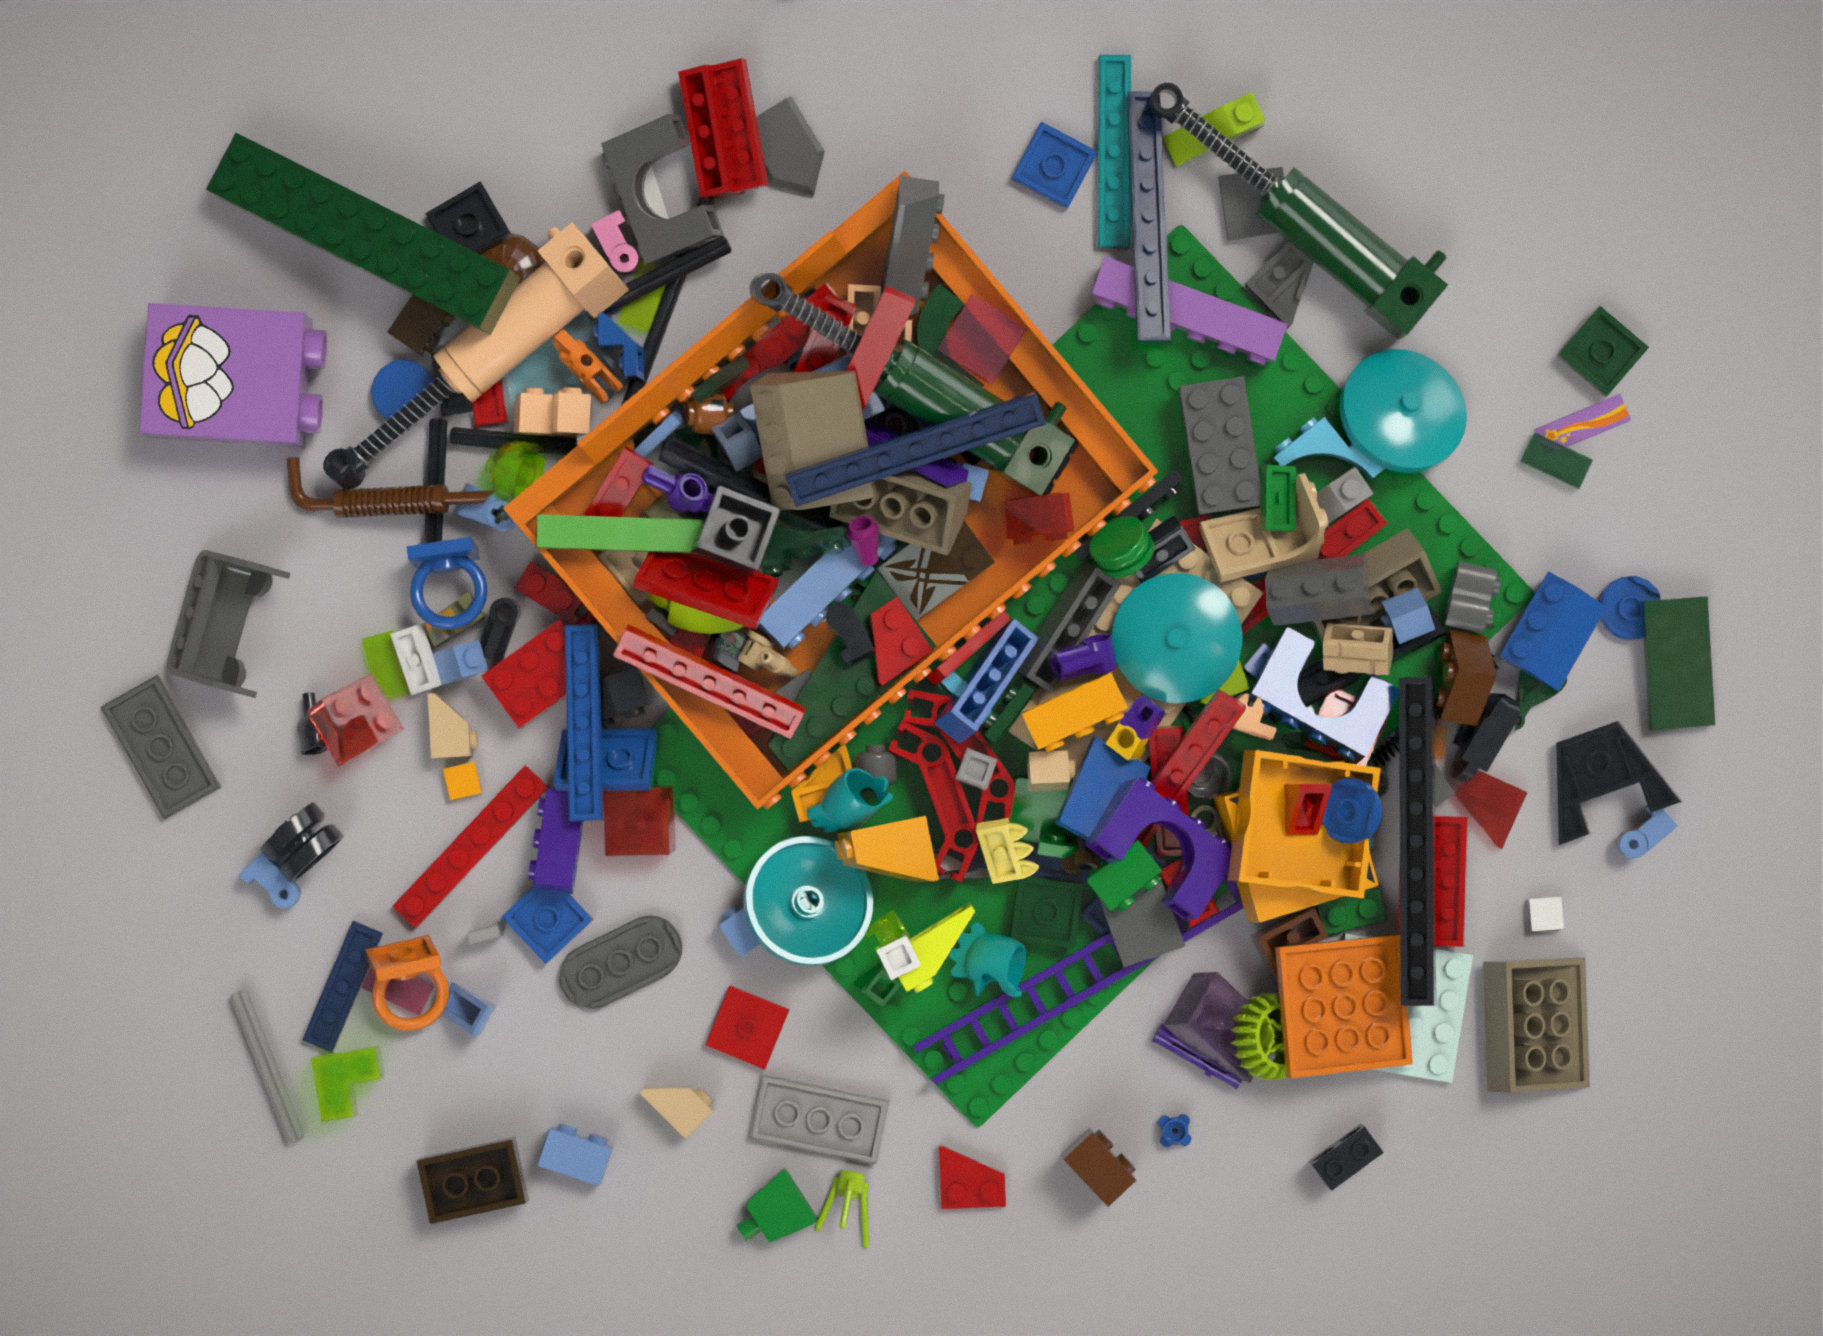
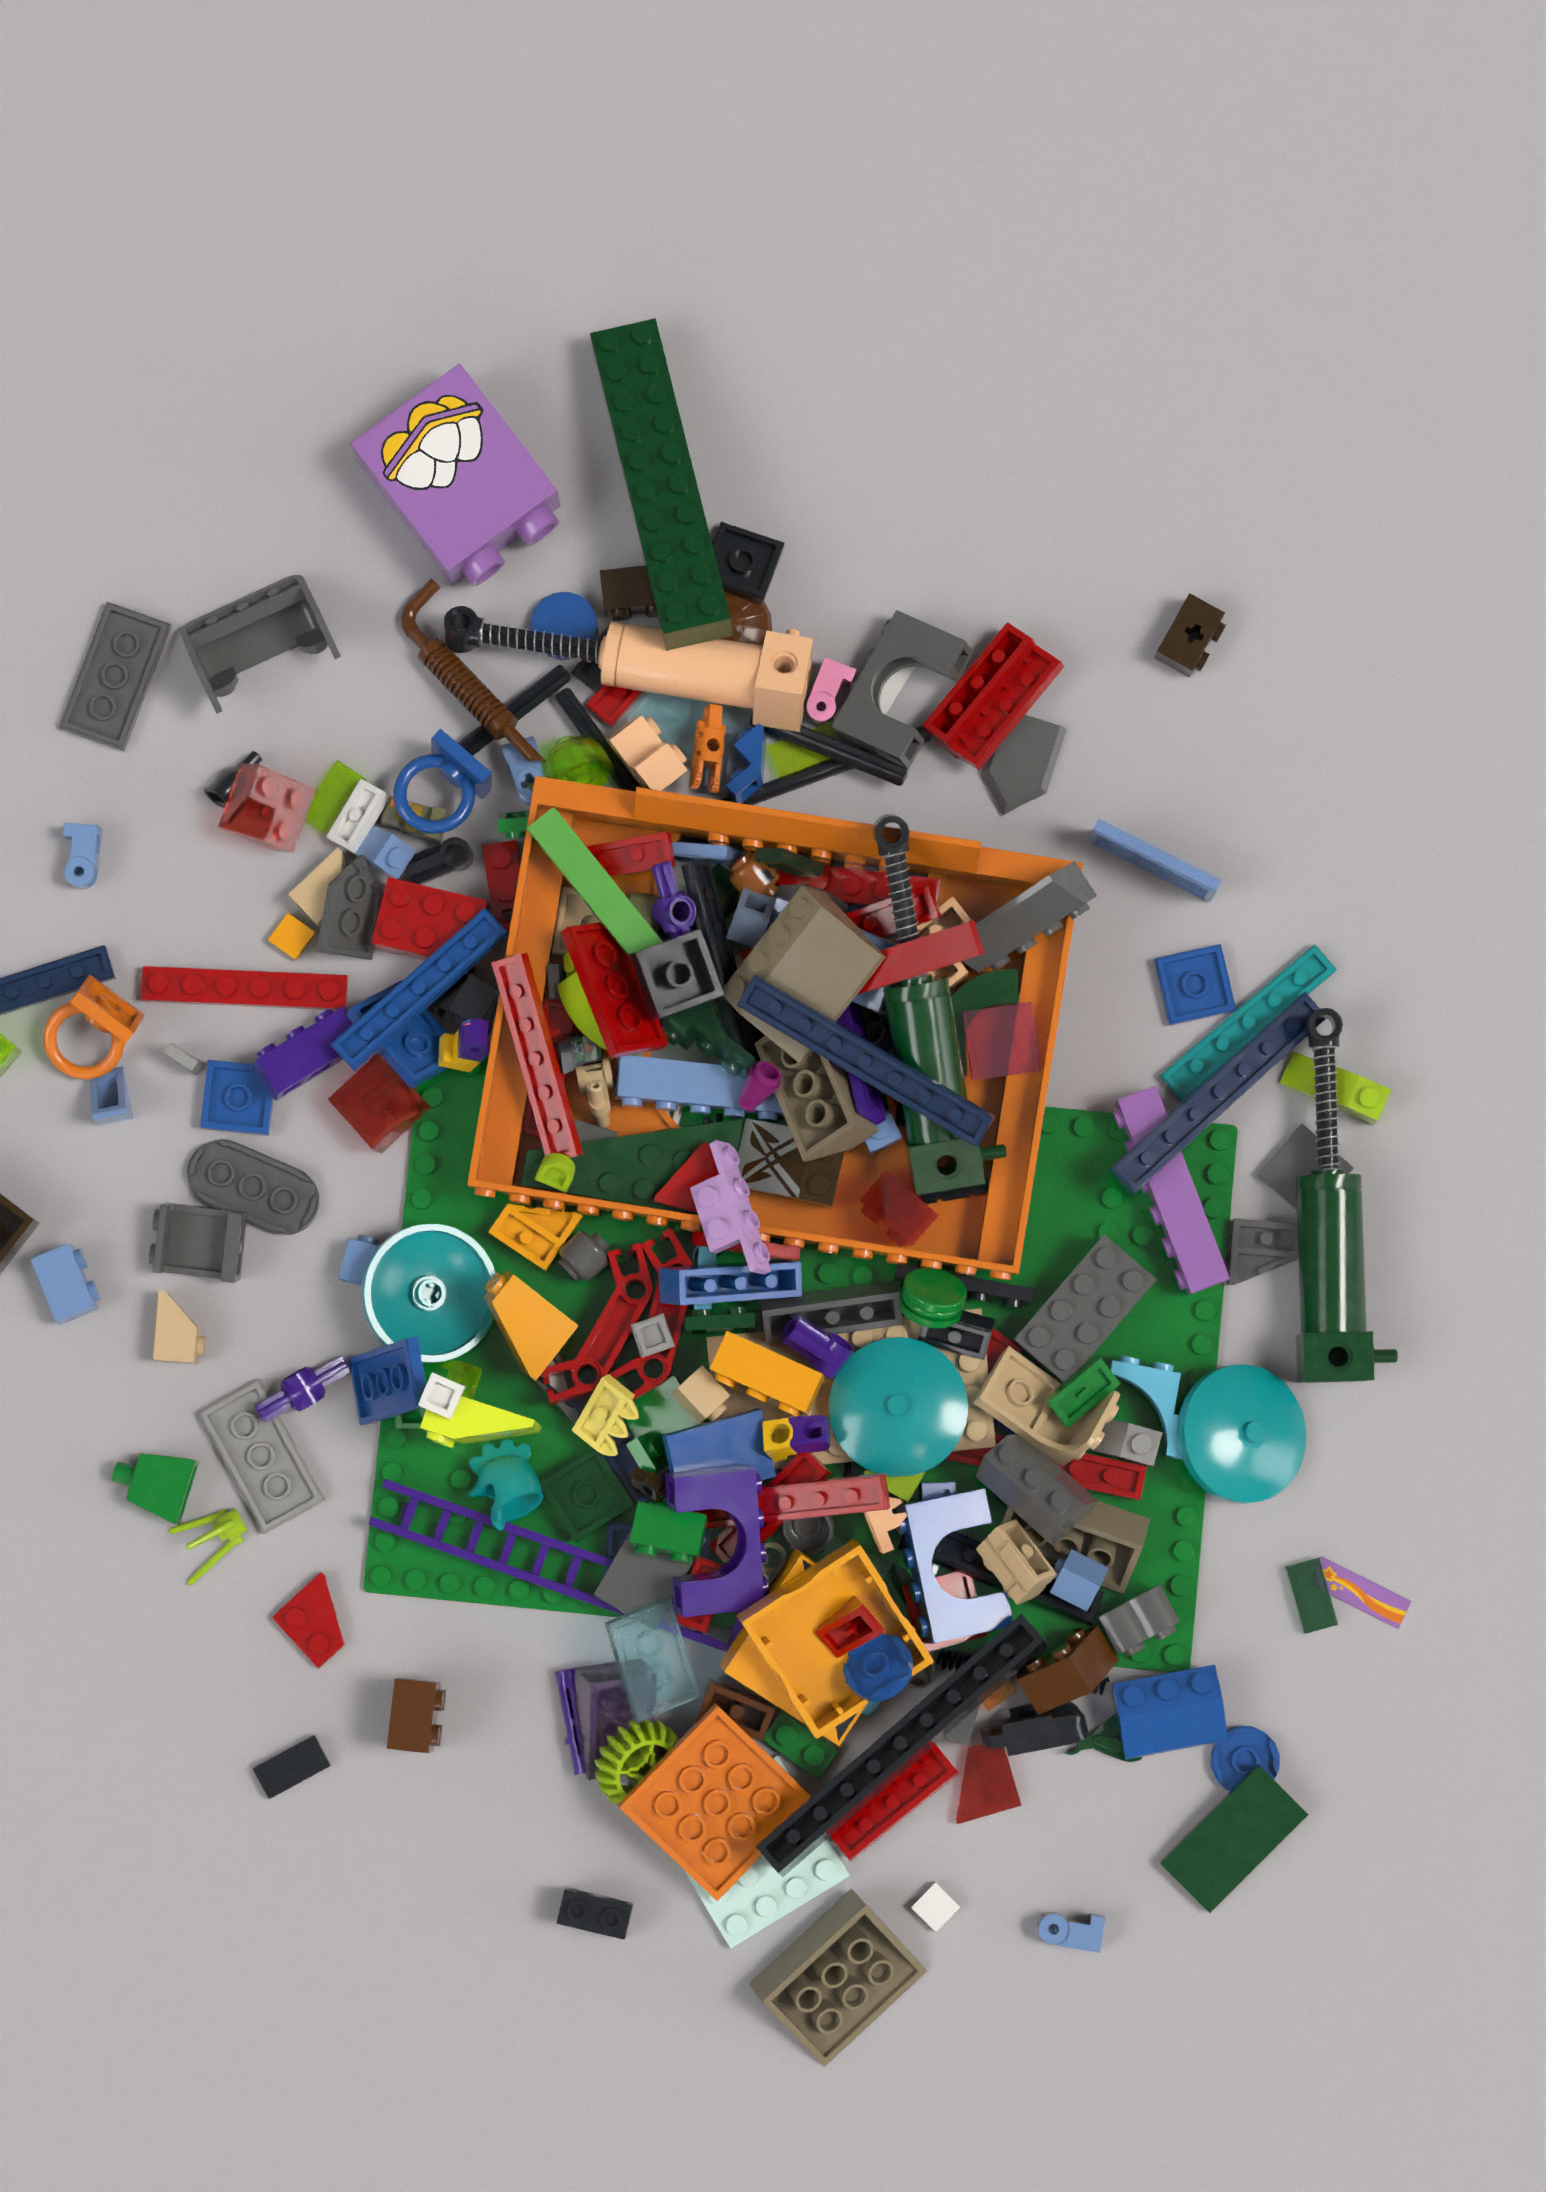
camera: 50 degrees right, 5 degrees down
(298, 838) = (132, 849): black wheel -> none
(409, 993) = (83, 1039): clear pink tile -> none
(483, 724) = (351, 912): none -> dark grey tile
(520, 550) = (513, 823): none -> green plate
(627, 1034) = (198, 1241): none -> dark grey panel
(654, 725) = (466, 1047): none -> leg
(747, 1027) = (287, 1334): red plate -> none
(797, 1049) = (302, 1388): none -> dark purple axle
(802, 737) = (556, 1171): none -> lime tile
(843, 805) = (531, 1255): teal piece -> none
(844, 623) = (677, 1130): black leg -> none
(847, 984) = (388, 1381): none -> blue tile
(936, 640) = (727, 1212): none -> lavender bracket
(942, 117) = (1154, 861): none -> medium blue tile
(1059, 1284) = (292, 1767): none -> black tile
(1167, 1124) = (488, 1753): blue plate -> none
(1206, 965) = (652, 1660): none -> clear light blue tile
(1599, 765) = (1094, 1845): black wing -> none
(1602, 351) = (1433, 1556): dark green plate -> none

